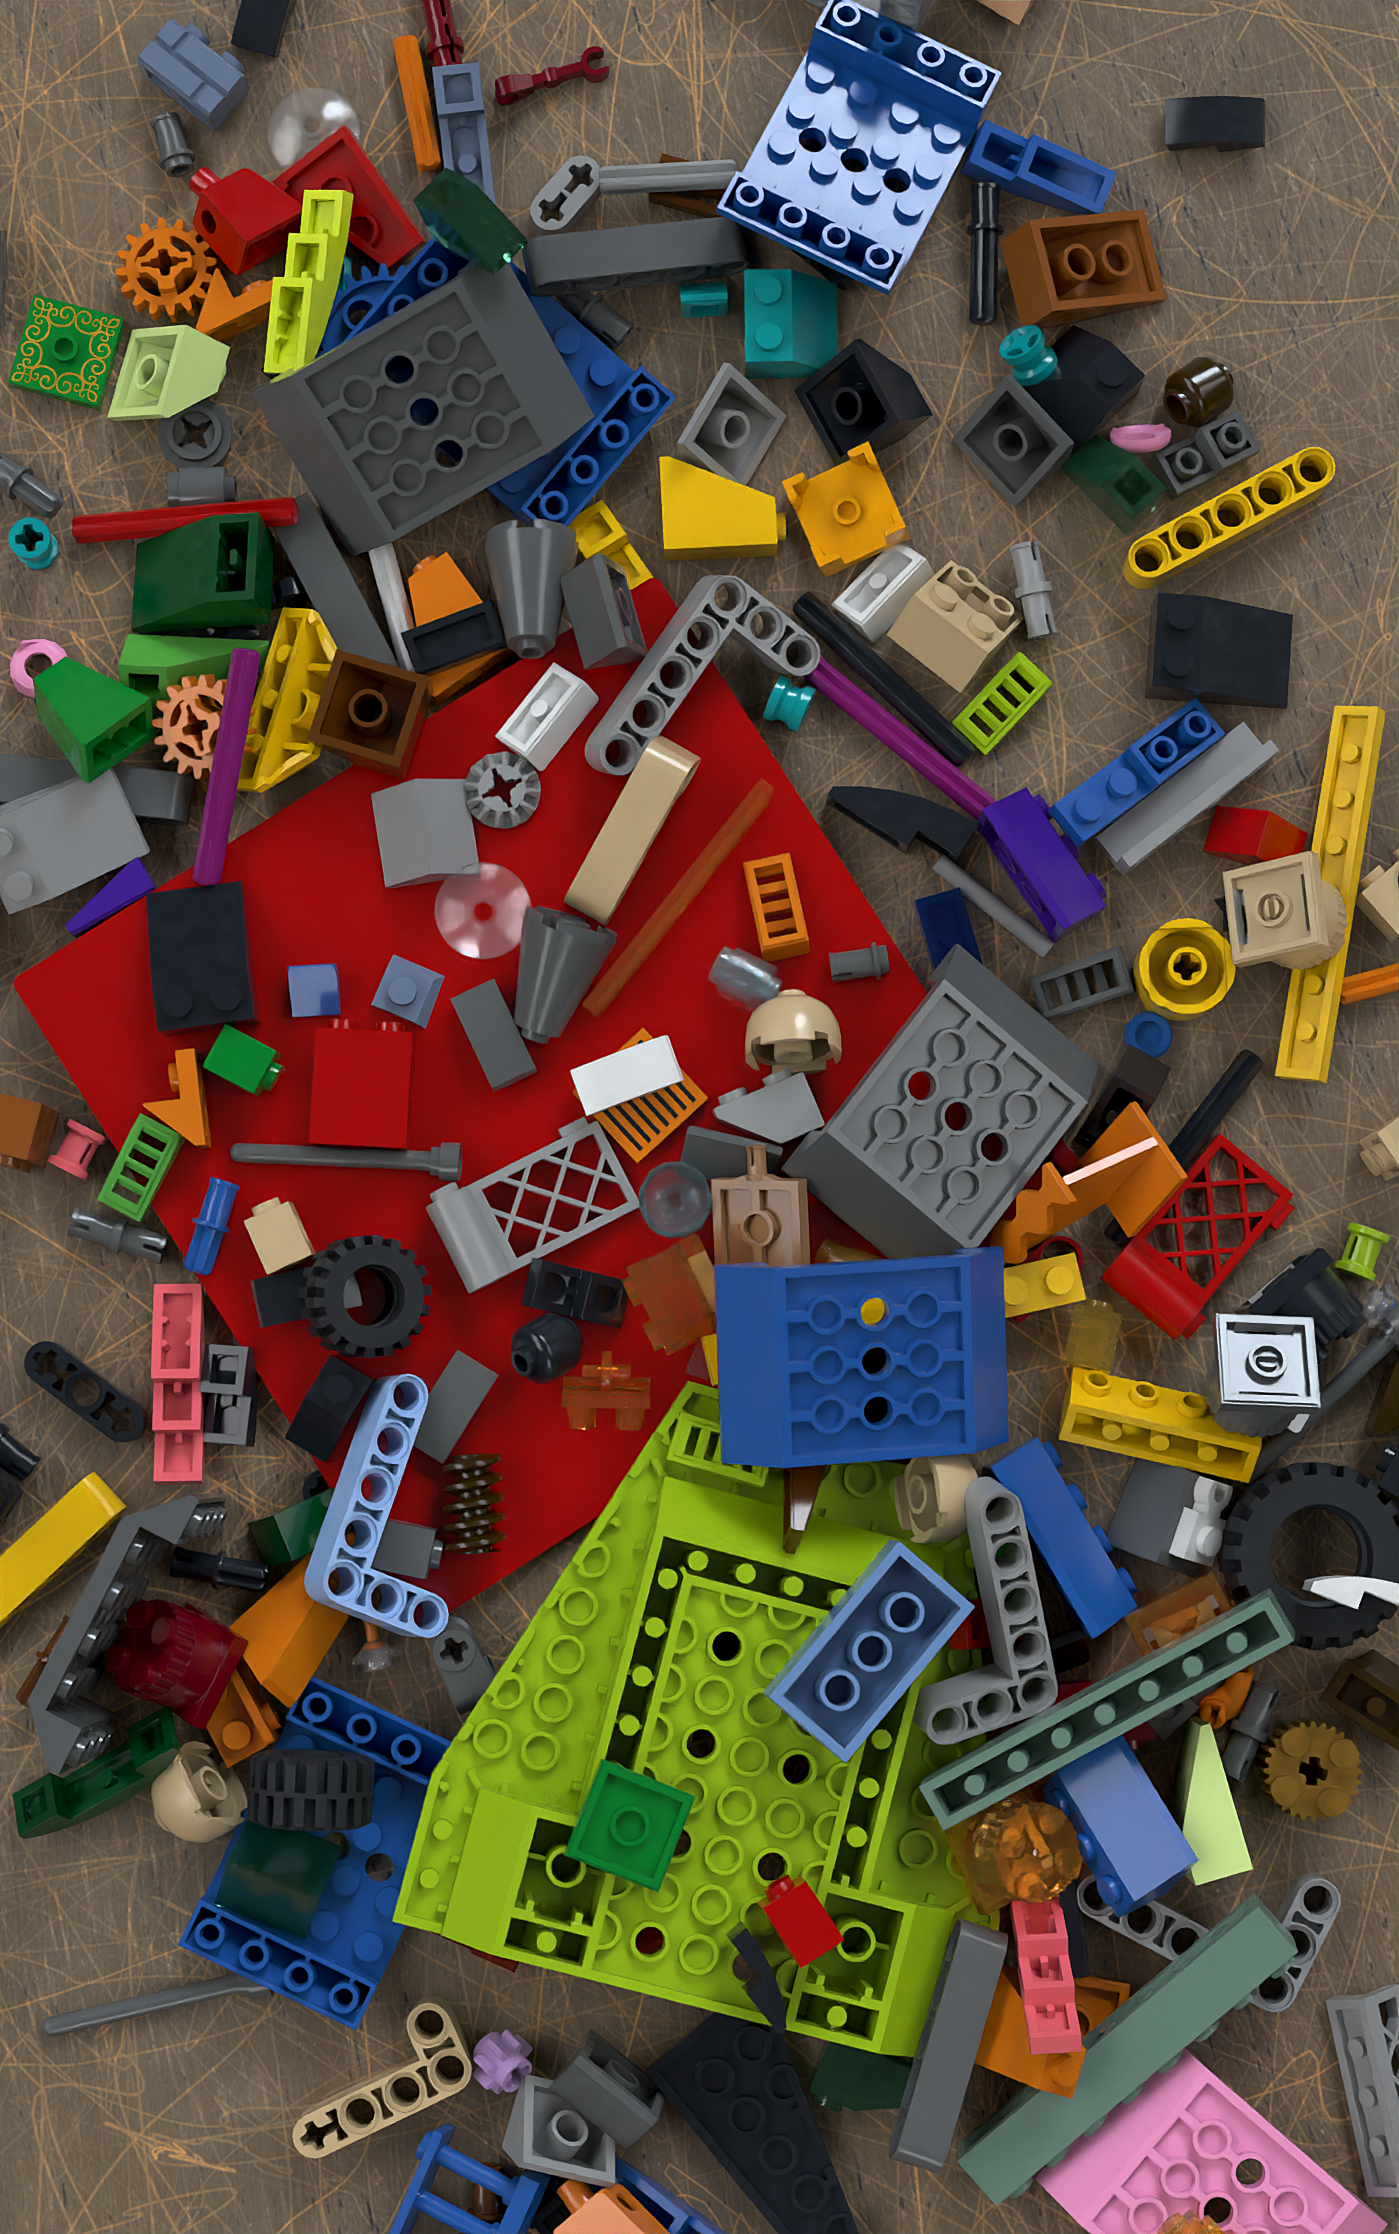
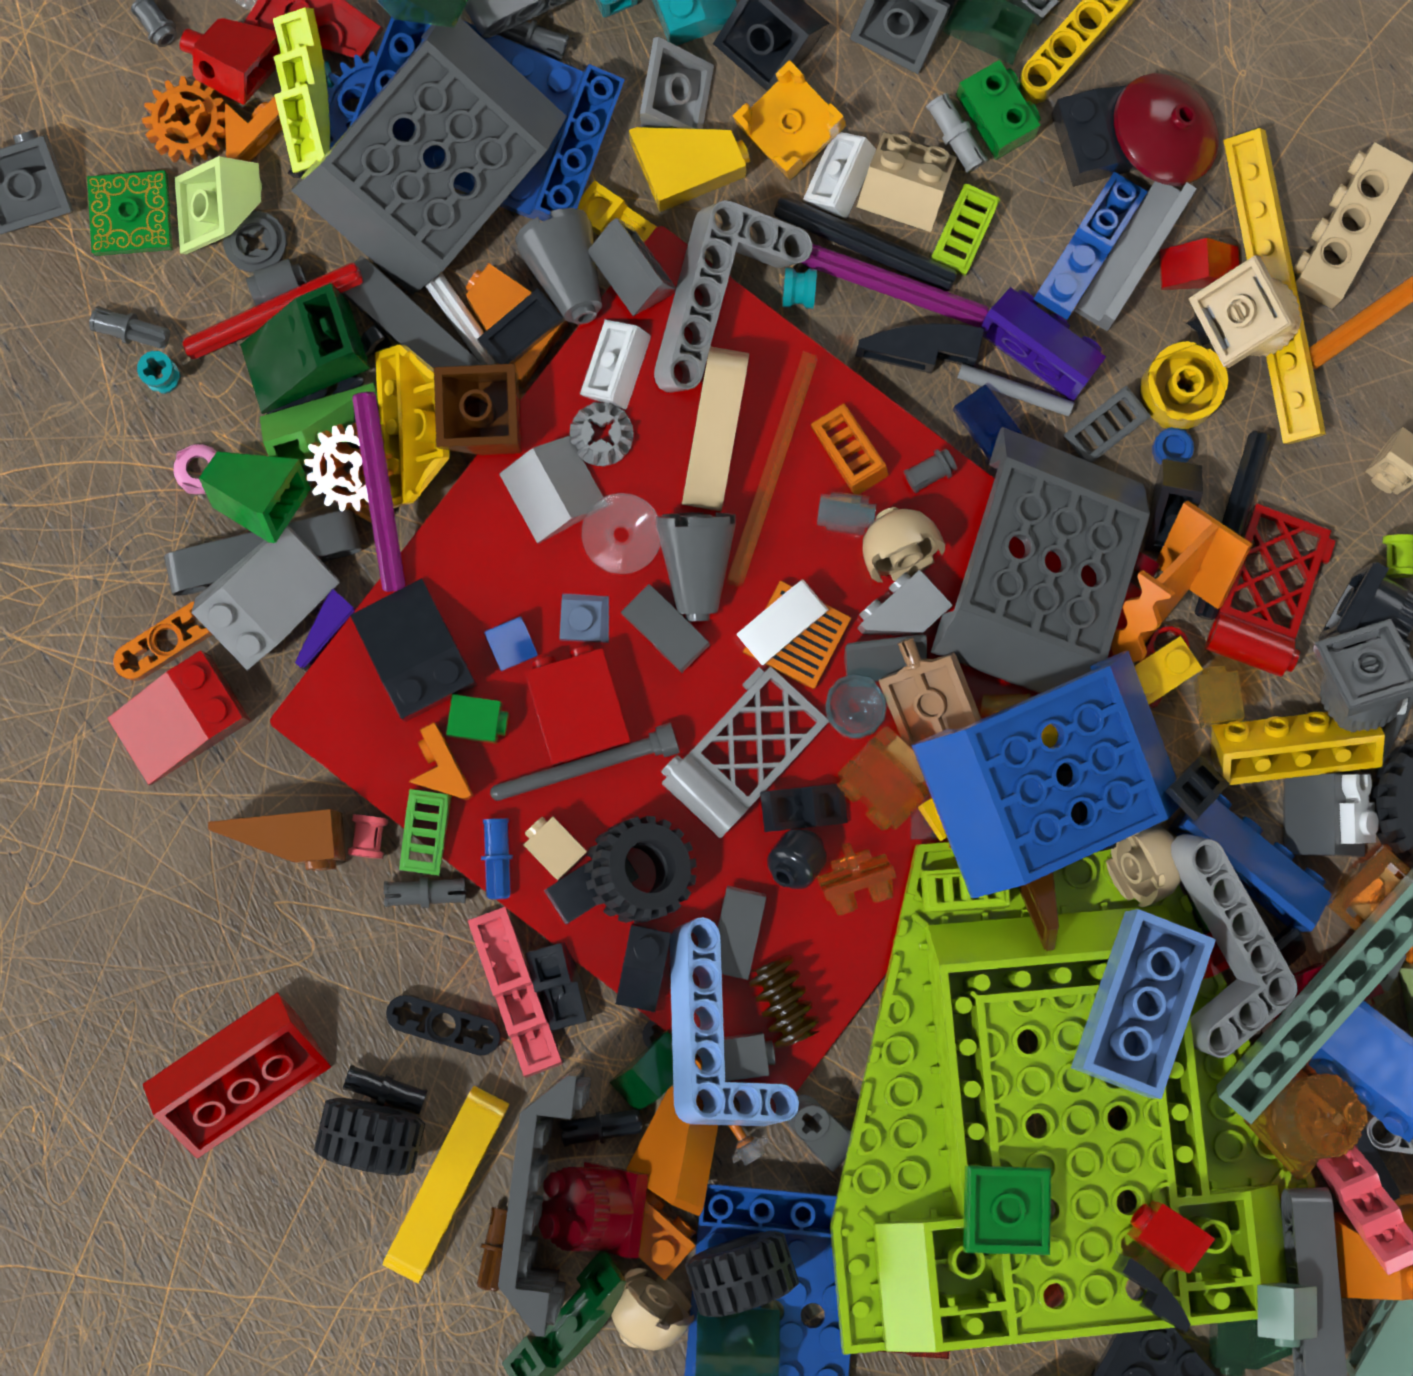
camera: 20 degrees left, 0 degrees up
(905, 2056) = (1287, 1313): none -> sand green brick
(1025, 1430) = (1197, 787): none -> black slope
(1090, 580) = (999, 109): none -> green brick
(1254, 672) = (1166, 129): none -> dark red dish

